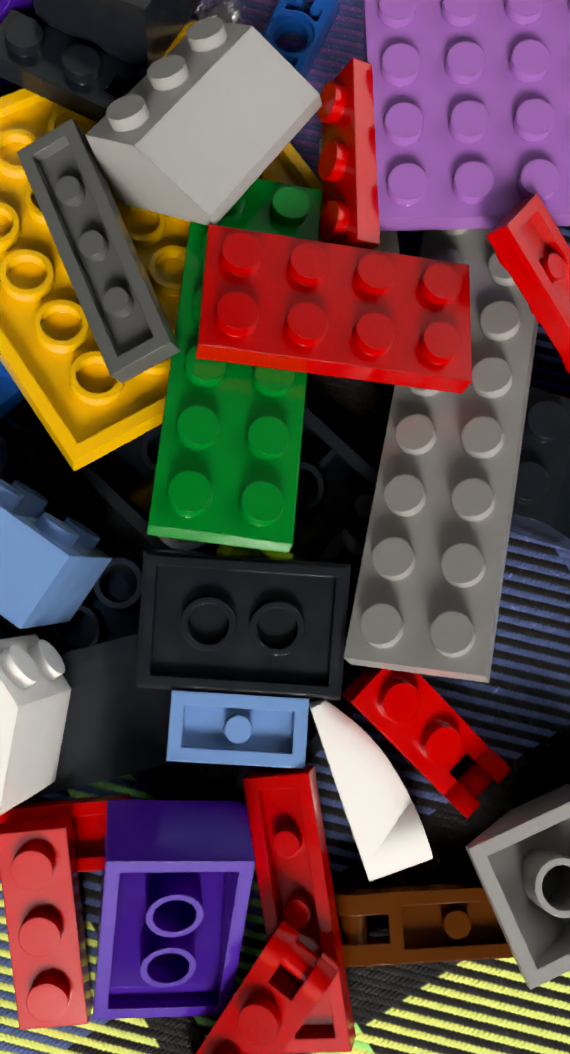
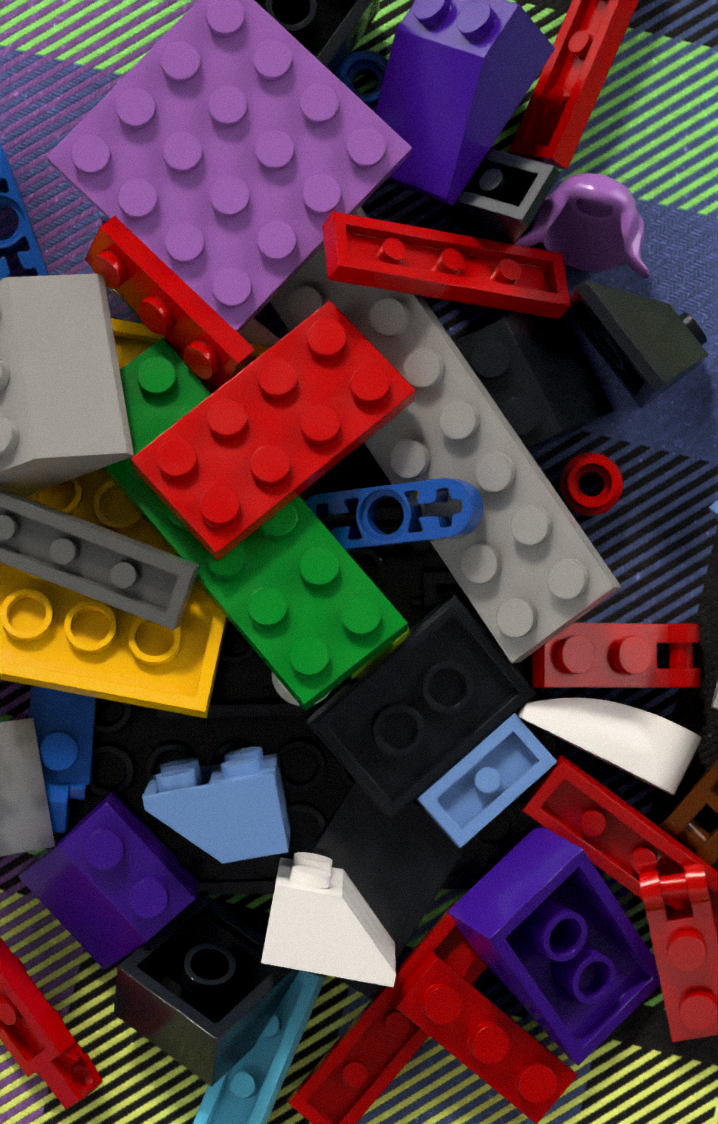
camera: 45 degrees left, 5 degrees up
(371, 484) = (430, 493): none -> blue beam
(545, 587) = (597, 465): none -> red plate

